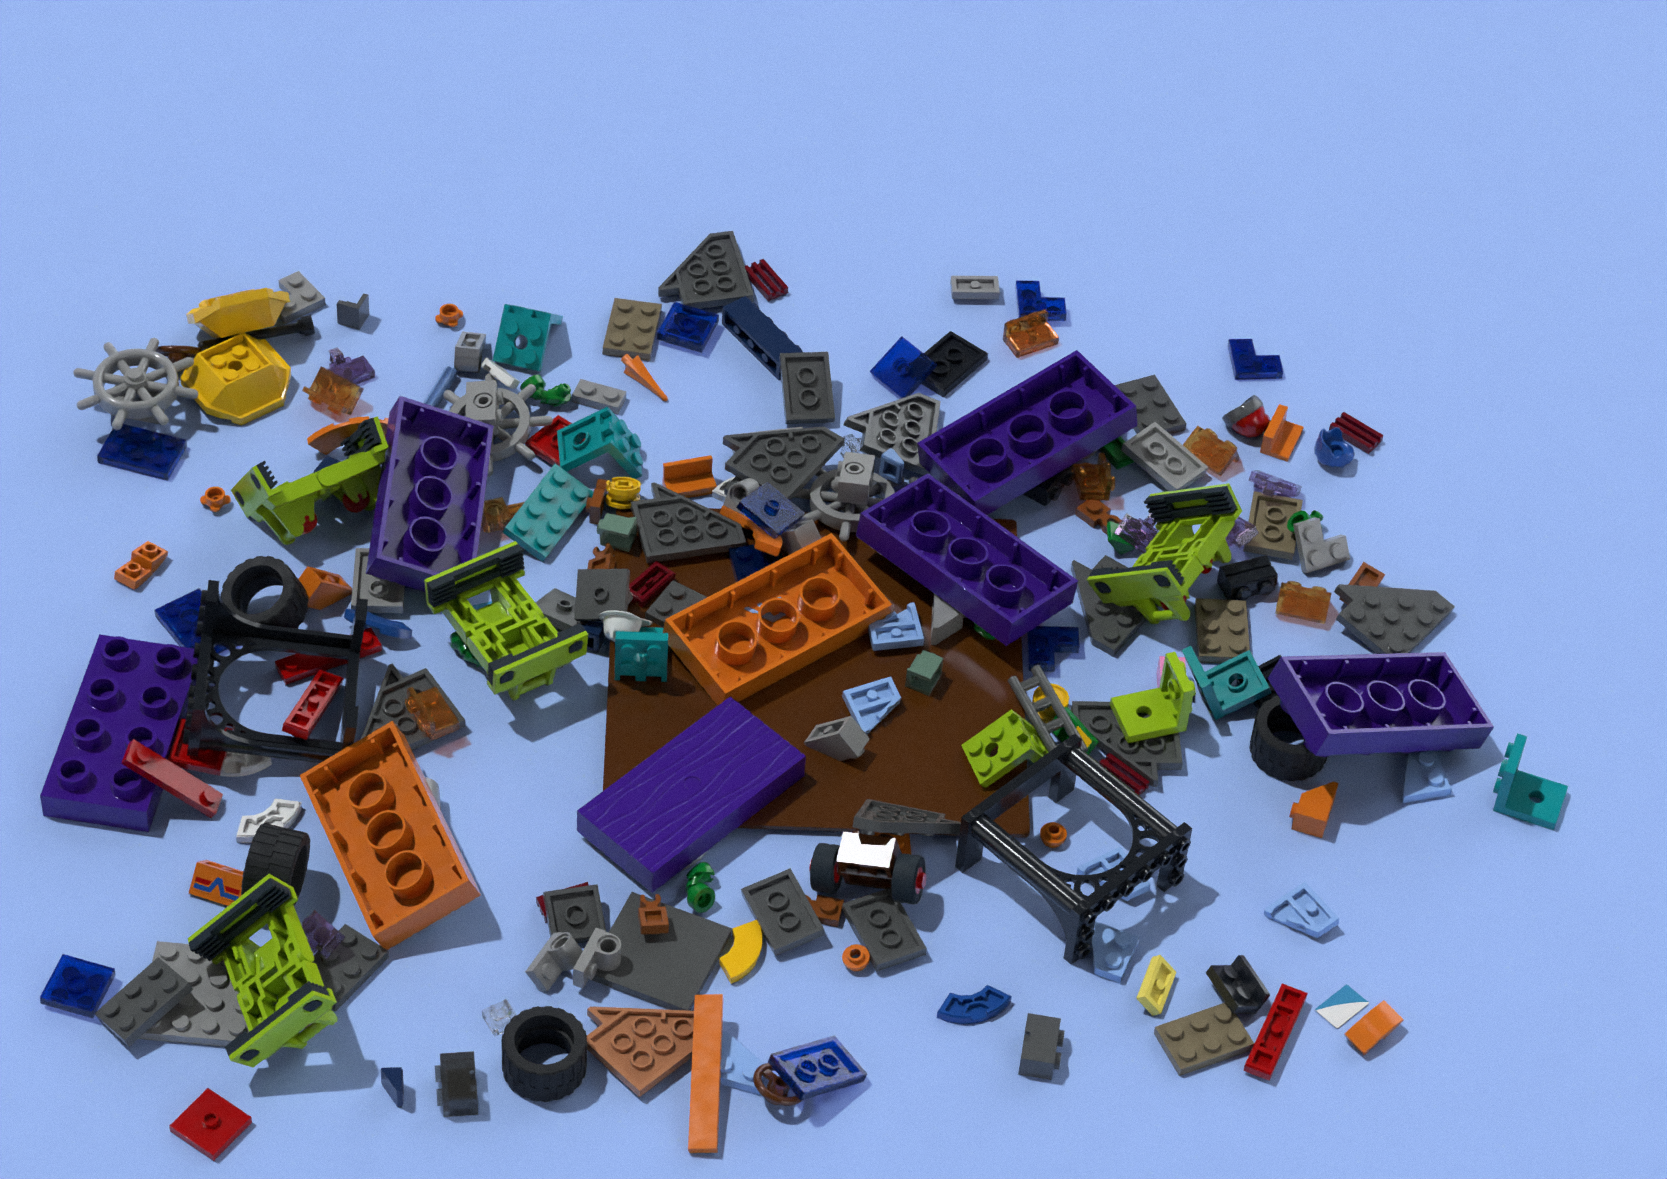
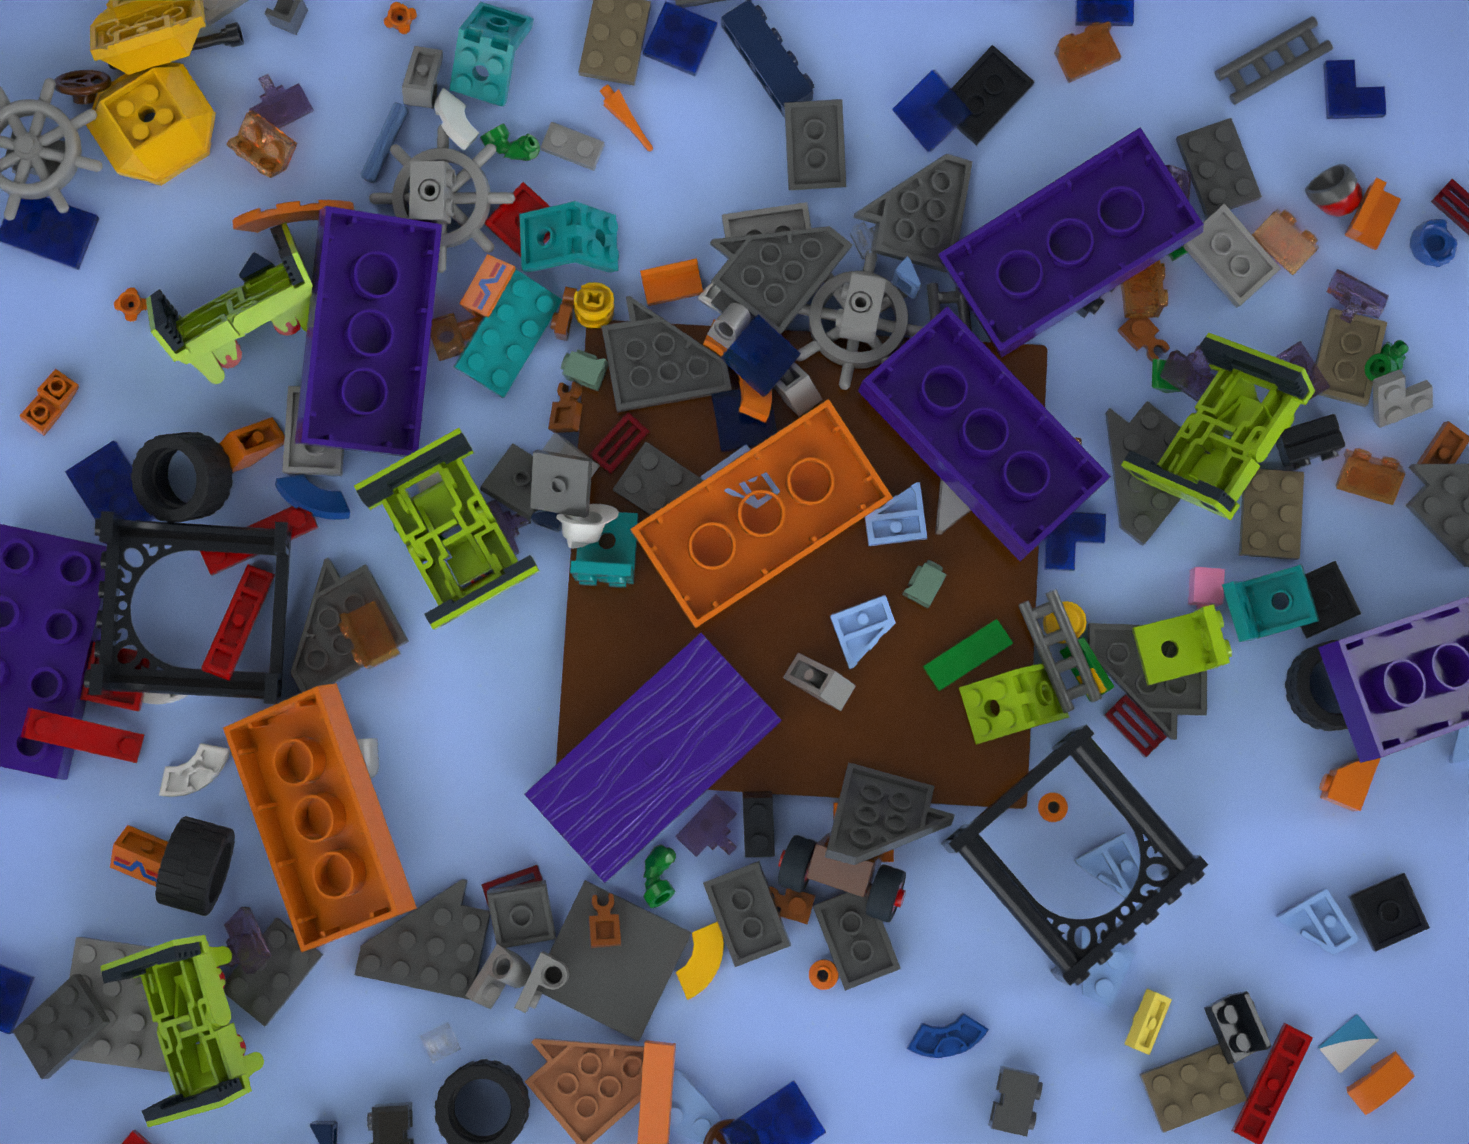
camera: 10 degrees right, 35 degrees up
(489, 946) = (431, 947): none -> dark grey wing
(529, 478) = (487, 286): none -> orange panel
(744, 854) = (709, 828): none -> clear purple hinge
(789, 841) = (758, 824): none -> black brick
(965, 724) = (967, 655): none -> green tile
(1181, 351) = (1280, 44): none -> dark grey bar
(1363, 903) = (1388, 912): none -> black plate

